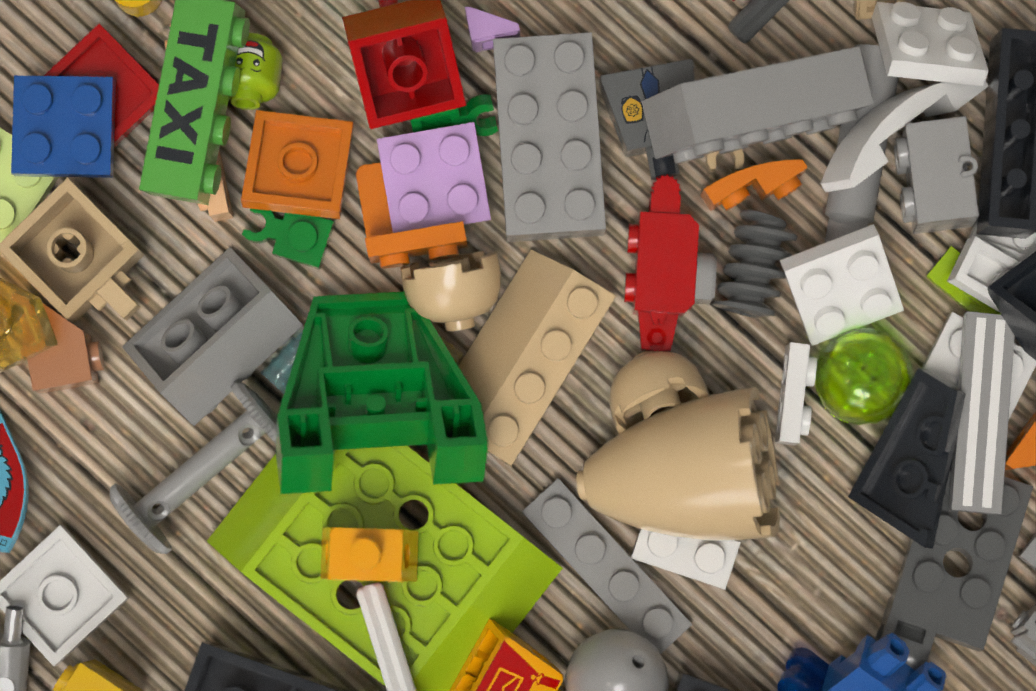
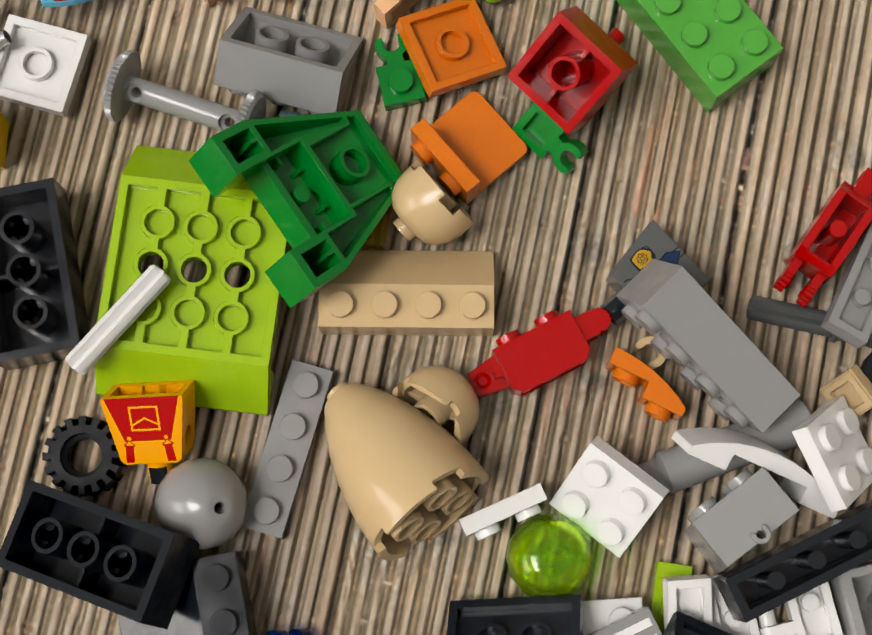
camera: 65 degrees right, 5 degrees down
(369, 554) = (183, 255): light orange torso -> none
(434, 177) = (502, 146): lavender plate -> none
(485, 27) = (635, 124): lavender slope -> none
(549, 137) = (583, 211): light grey brick -> none
(694, 558) = (332, 513): white plate -> none
(705, 278) = (549, 390): light grey tile -> none
(756, 265) = (584, 422): dark grey piece -> none

